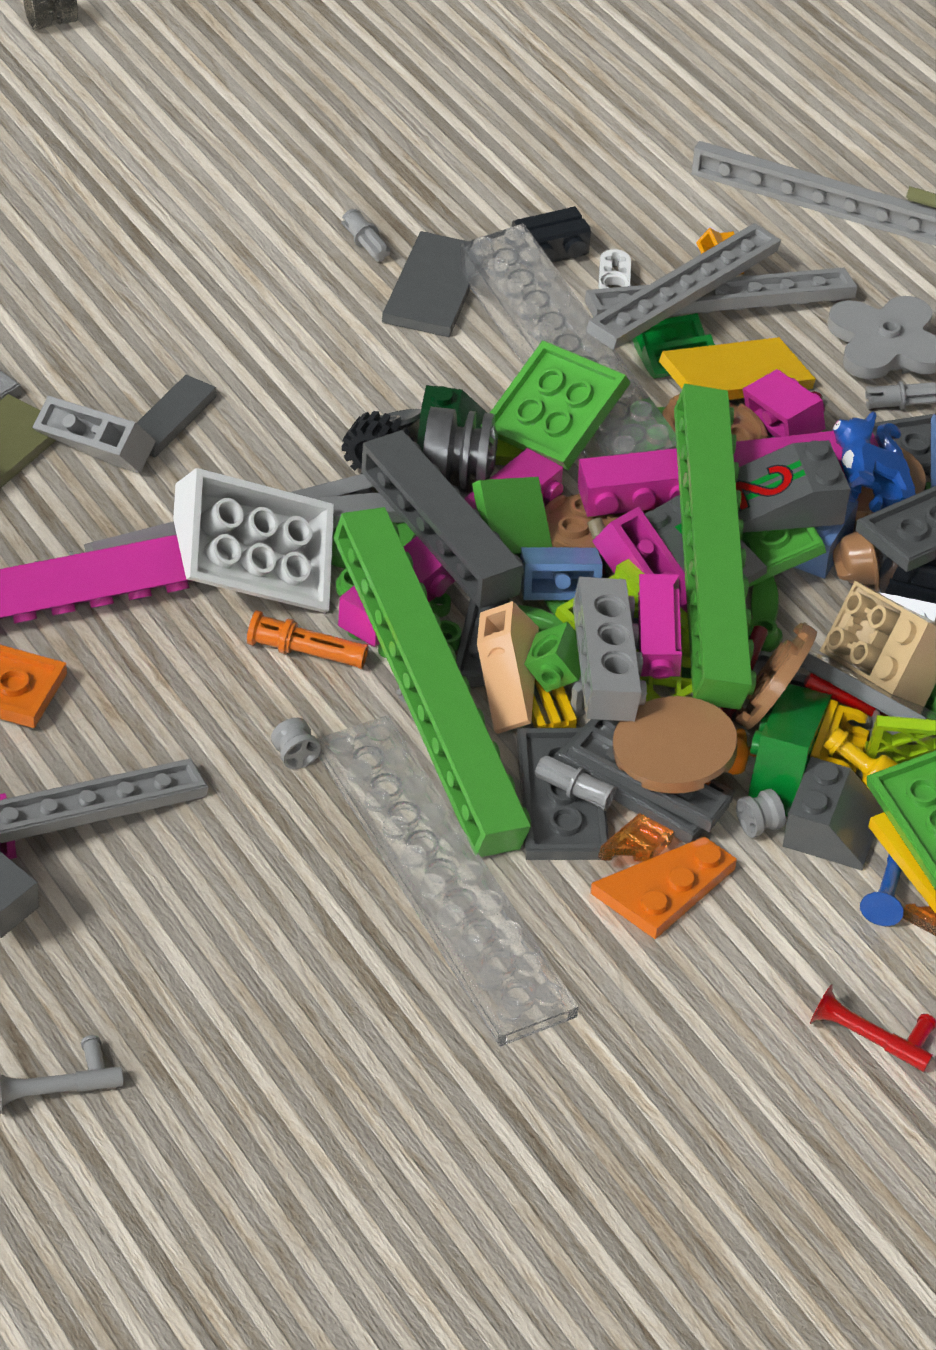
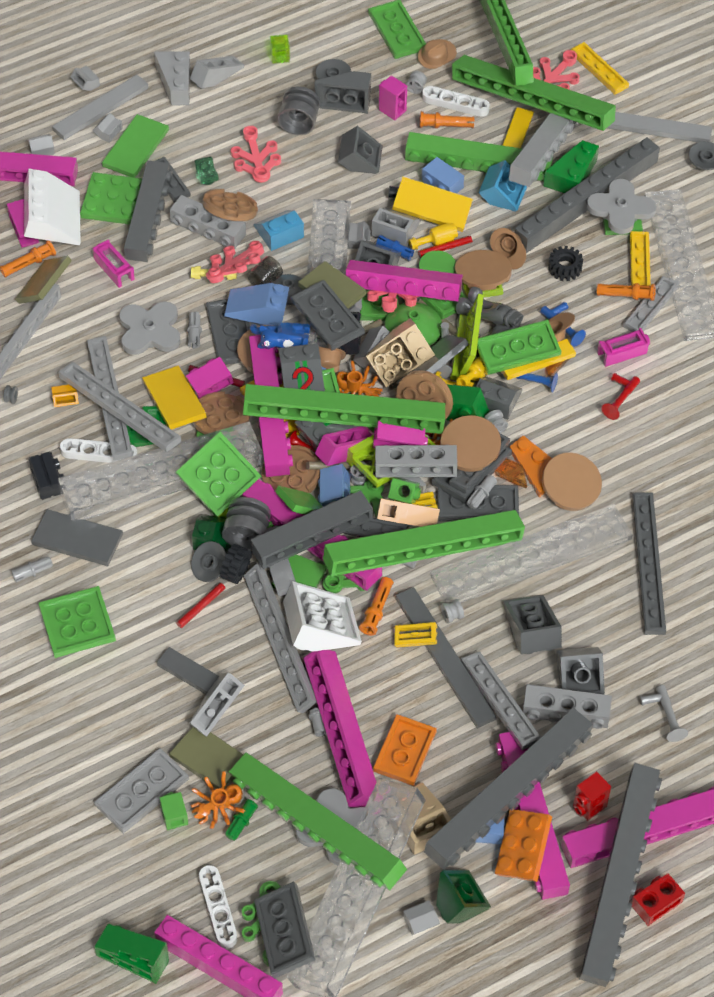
camera: 85 degrees left, 10 degrees up
(73, 913) = (559, 698): none -> light grey brick
(156, 934) = (581, 670): none -> dark grey slope
(218, 730) = (448, 661): none -> dark grey tile
(240, 704) = (415, 642): none -> yellow tile
(264, 285) = (77, 622): none -> bright green plate
(267, 862) = (533, 624): none -> dark grey slope
(302, 424) = (200, 605): none -> red bar
(436, 1069) = (649, 564): none -> dark grey tile
(622, 930) = (571, 481): none -> medium nougat tile
(719, 200) = (10, 394): none -> dark grey bush
(816, 603) = (354, 382): none -> orange animal

